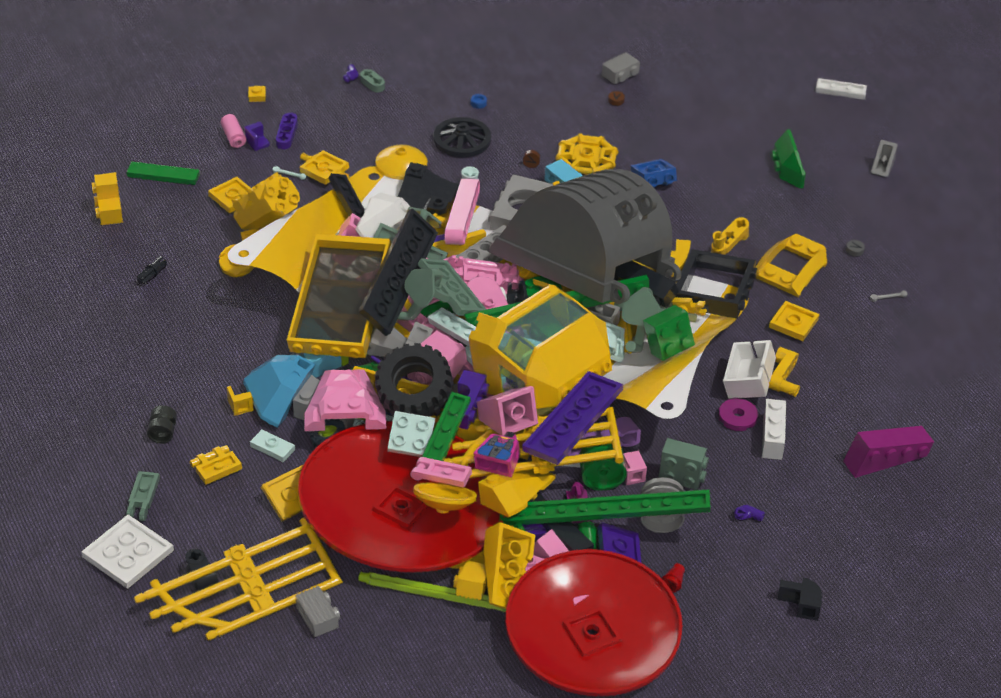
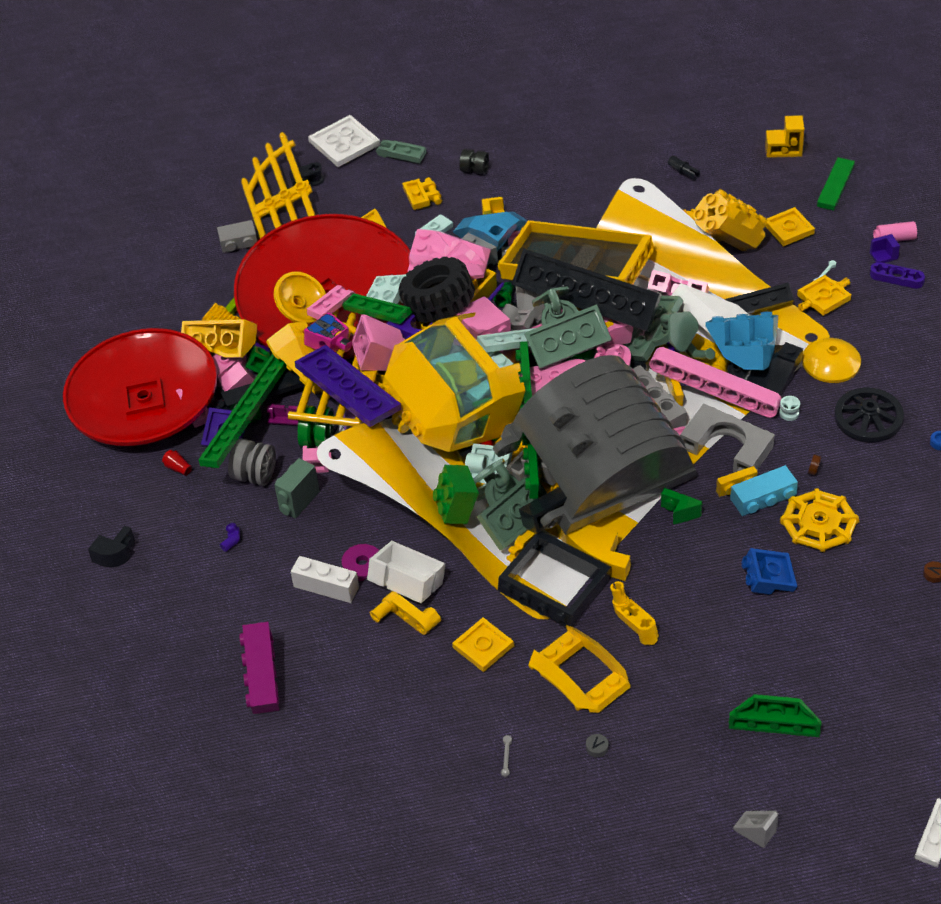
camera: 110 degrees right, 5 degrees up
(418, 189) = (745, 338): none -> dark azure brick

